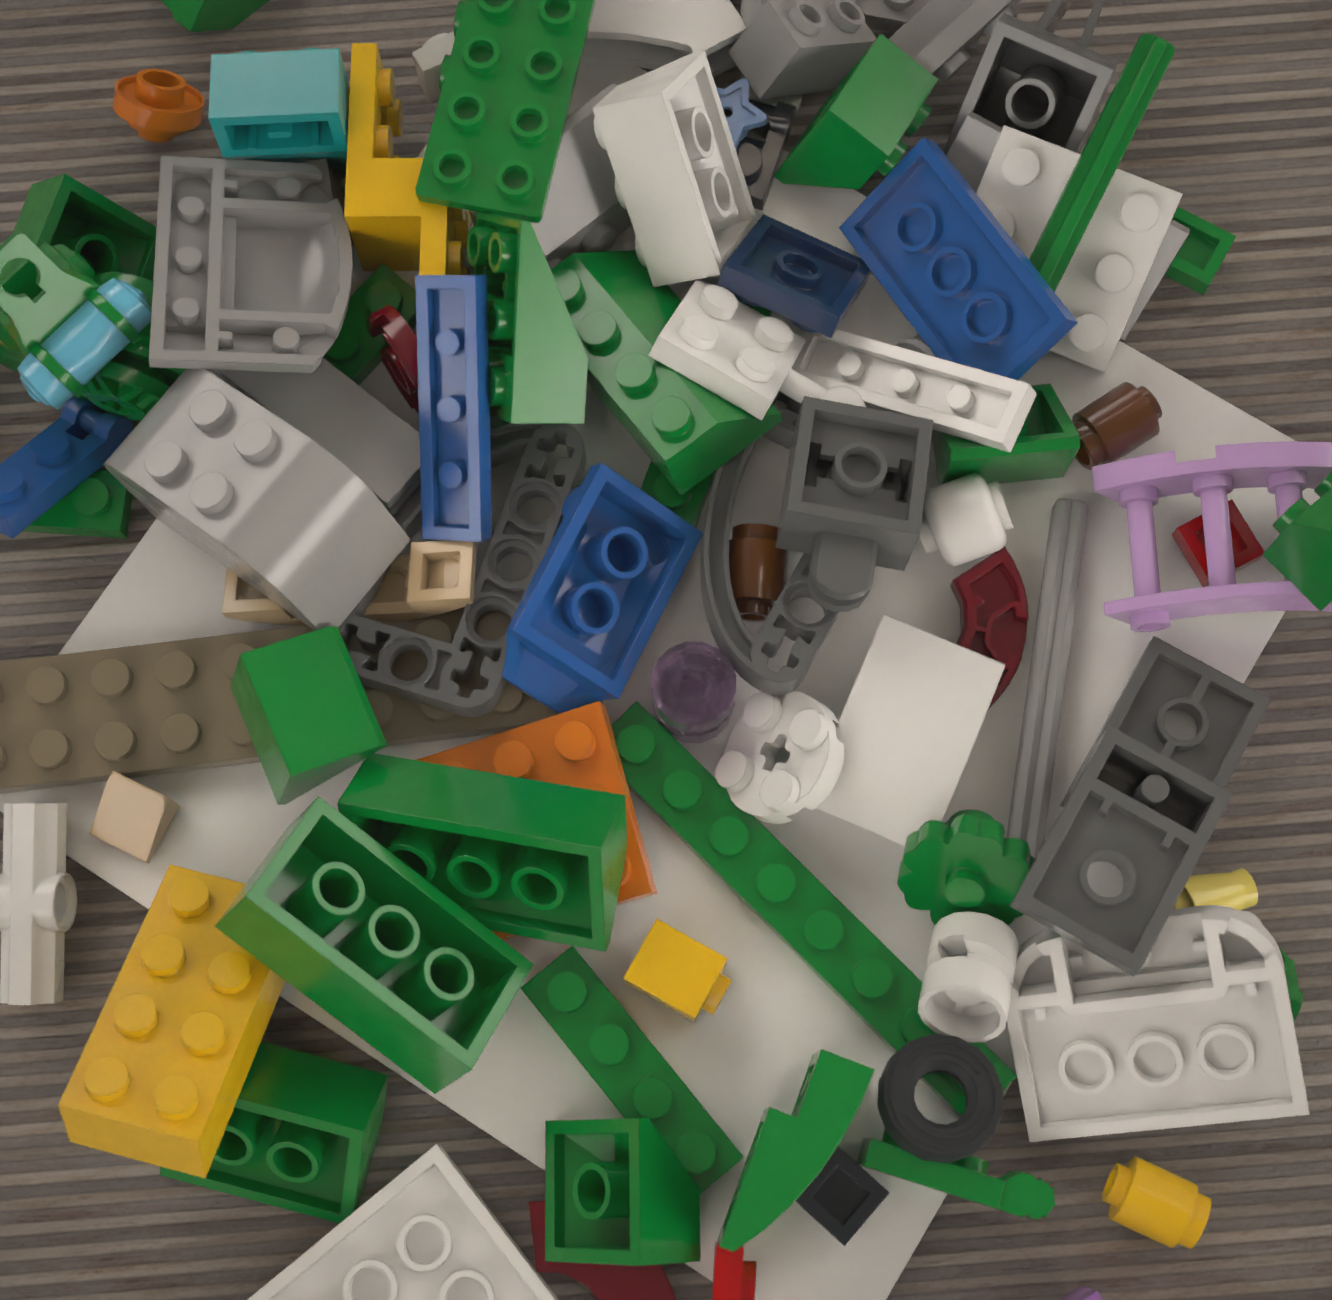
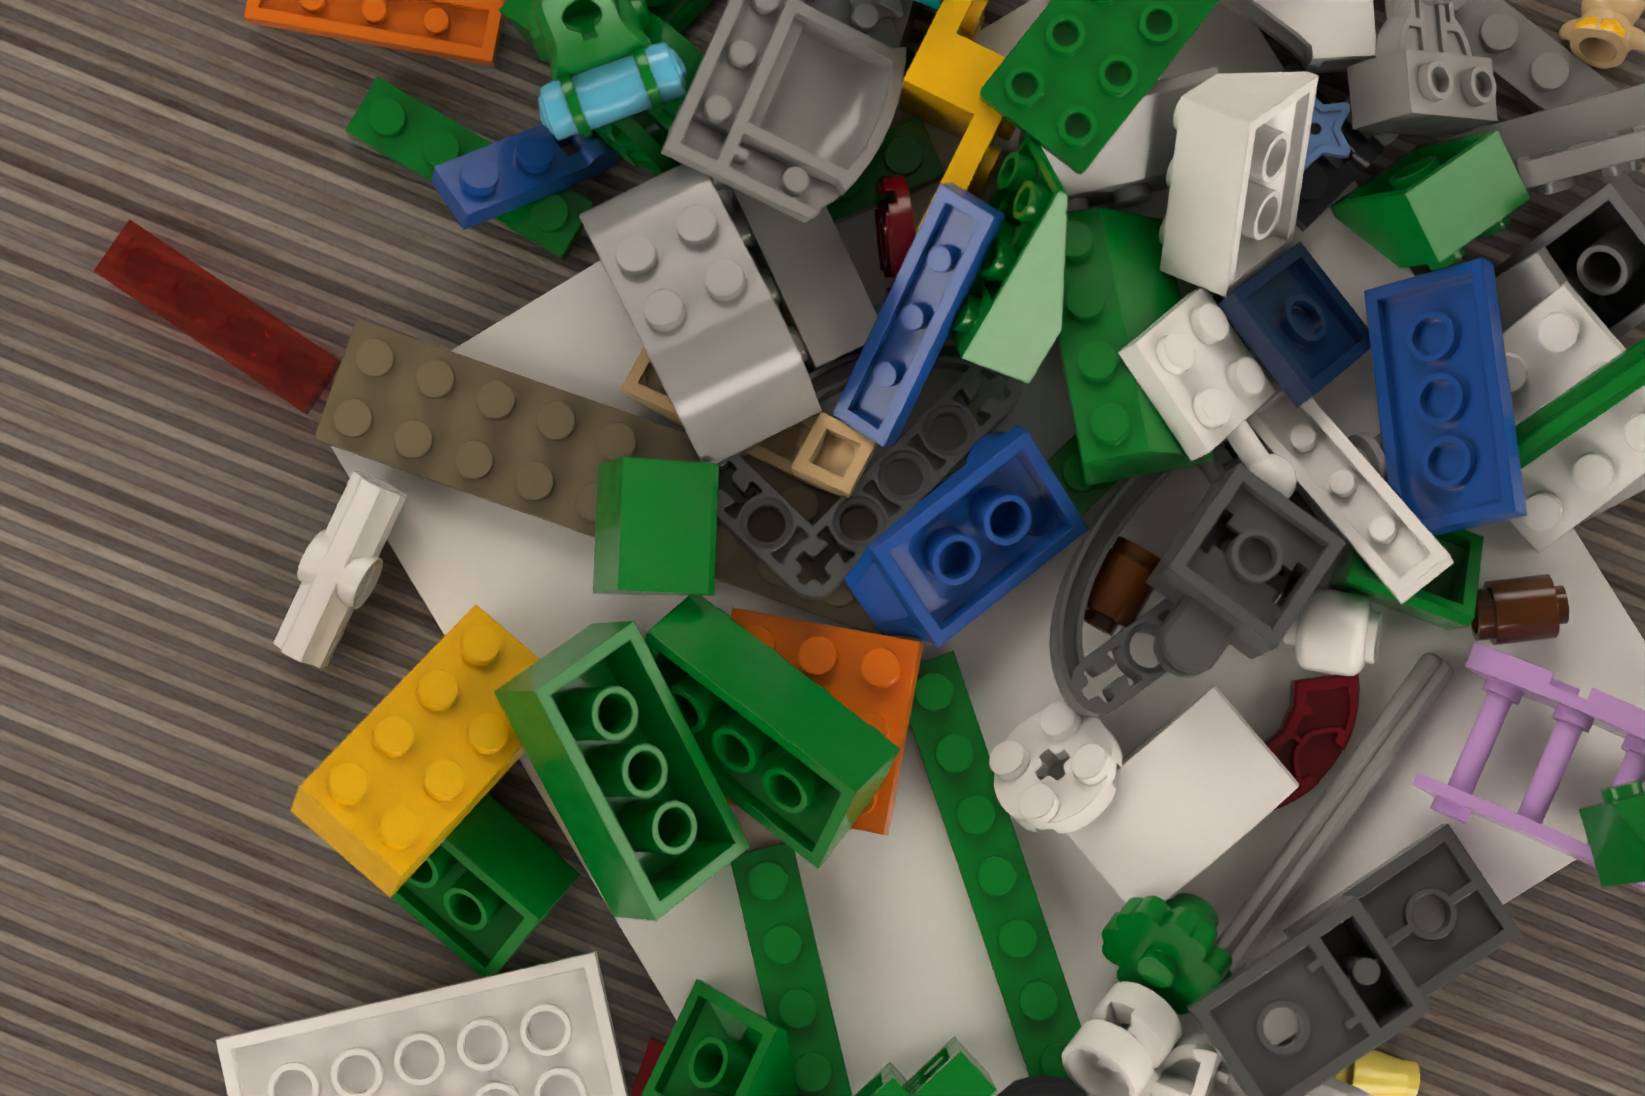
camera: 25 degrees right, 10 degrees up
(132, 817) = (459, 535): tan slope -> none
(678, 972) = (873, 913): yellow brick -> none
(693, 691) = (1008, 672): clear purple wheel -> none
(1192, 543) = (1576, 778): red plate -> none

